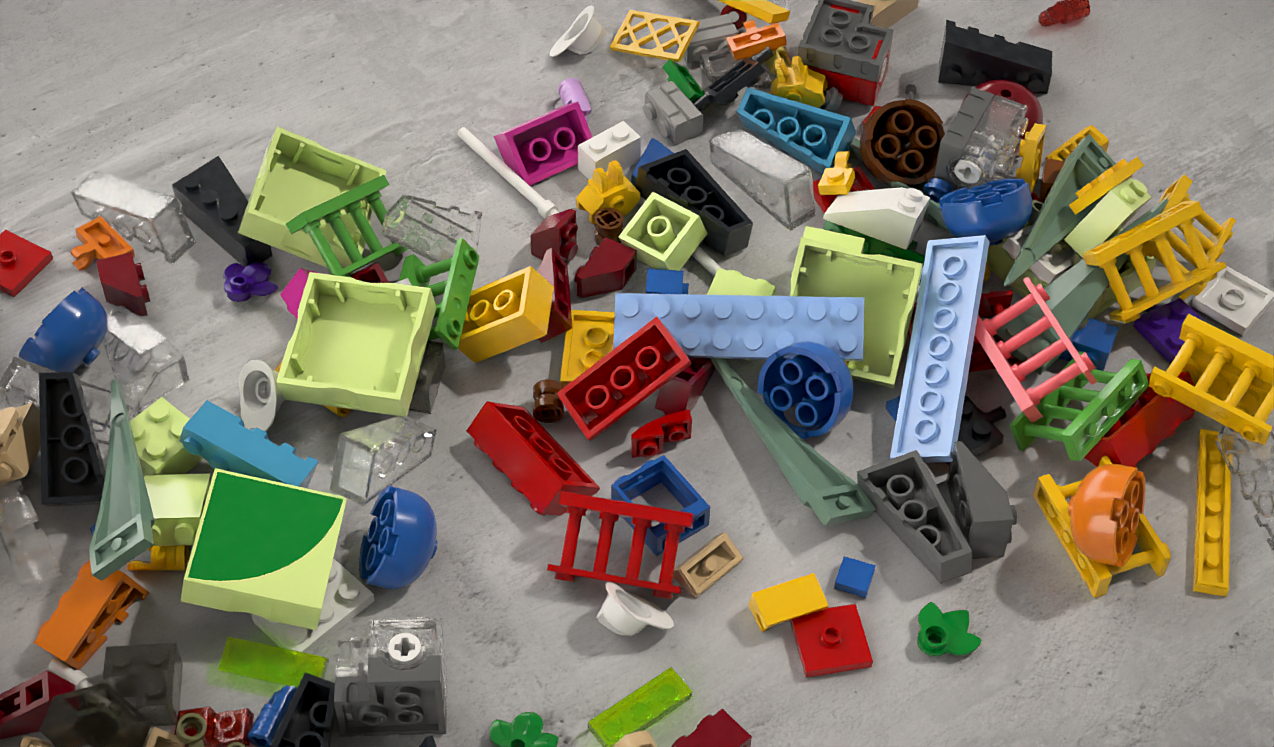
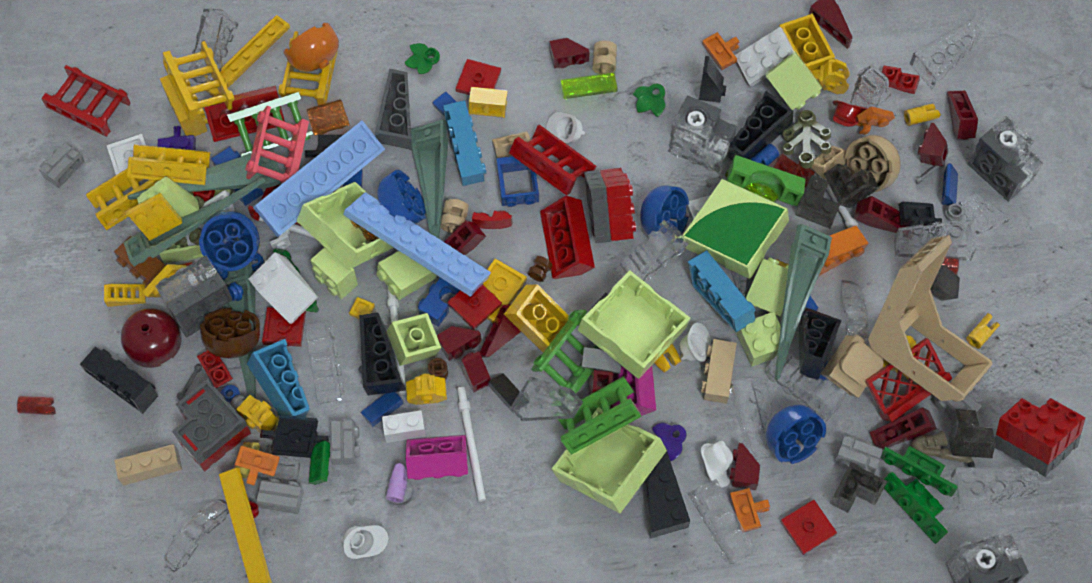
camera: 150 degrees left, 15 degrees up
(168, 274) = (717, 460): none -> white piece
(209, 374) = (719, 371): none -> tan brick
(291, 655) = (786, 185): none -> bright green arch
(491, 502) = (610, 205): none -> piece
(503, 245) = (504, 389): none -> black slope
(598, 309) = (477, 308): none -> red plate
(624, 378) = (497, 239): red slope -> none
(658, 52) = (320, 496): yellow window -> none
(718, 412) = (454, 214): none -> tan wheel
(763, 261) = (361, 307): none -> yellow tile
(778, 516) = (464, 143): none -> dark azure wedge
(839, 178) = (286, 328): yellow plate -> none
(852, 108) = (230, 388): none -> blue plate
(979, 505) = (367, 93): dark grey slope -> none
(1012, 462) = (327, 117): none -> clear orange bracket

